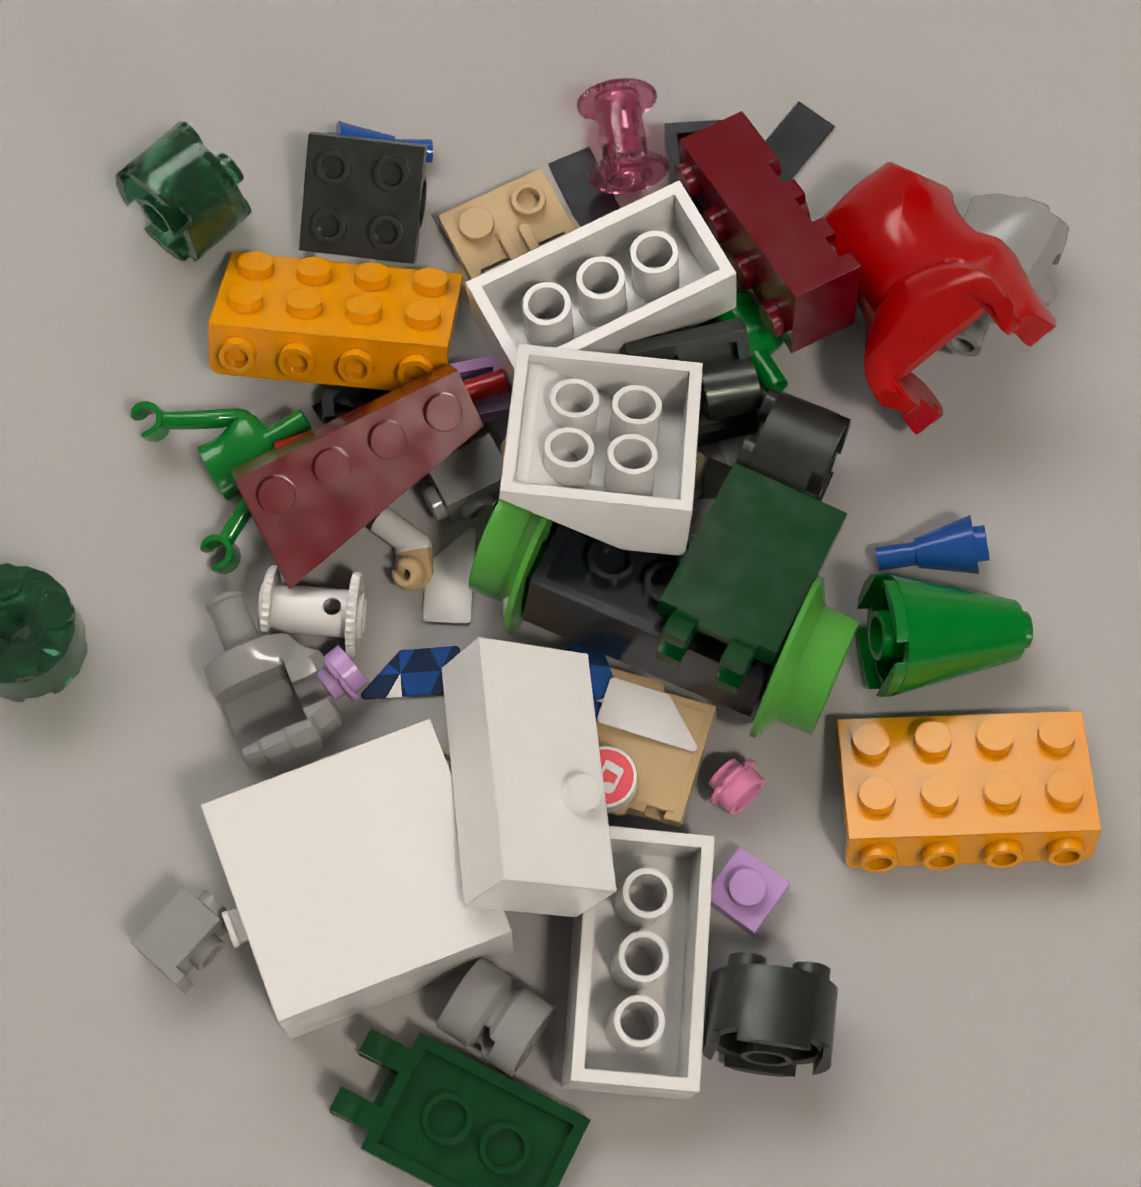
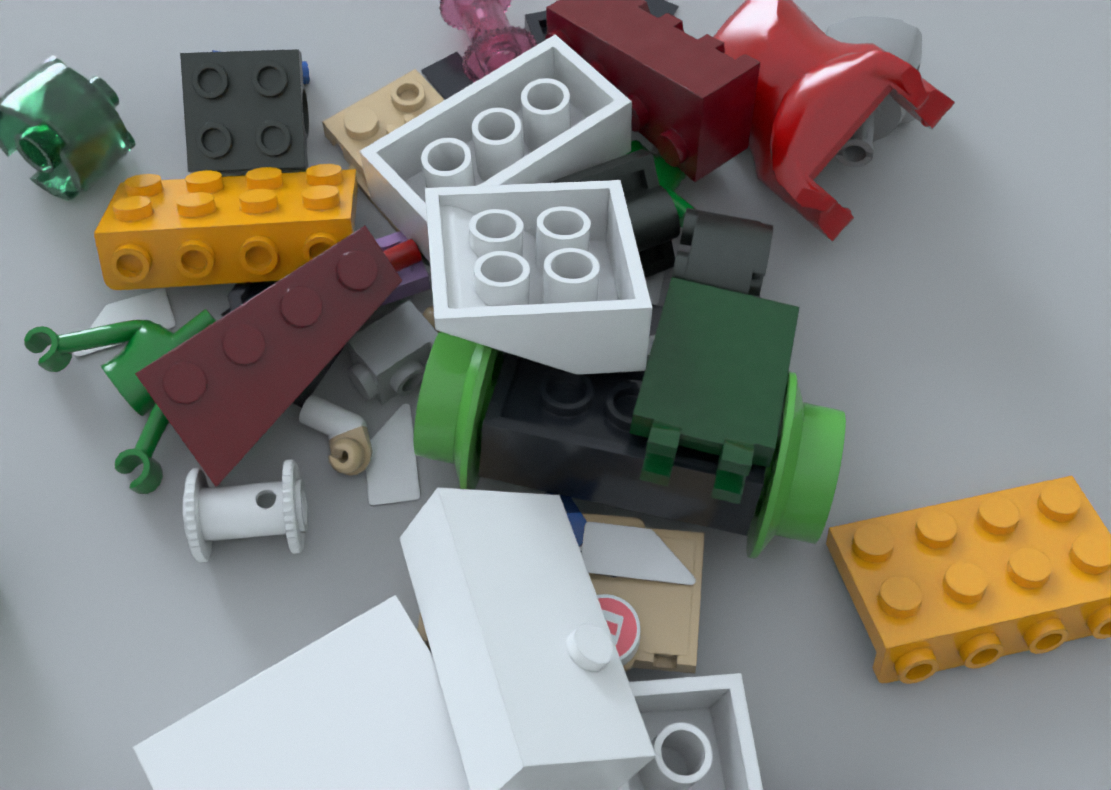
camera: 15 degrees left, 10 degrees down
(229, 392) = (147, 306): none -> white sticker
(268, 688) = (205, 601): light grey piece -> none
(341, 675) = (287, 574): lavender plate -> none
(412, 674) = (366, 563): sticker -> none
(736, 785) = (741, 616): bright pink plate -> none
(747, 891) = (784, 731): lavender plate -> none
(934, 633) = (907, 420): green cone -> none
(948, 548) = (895, 340): blue cone -> none

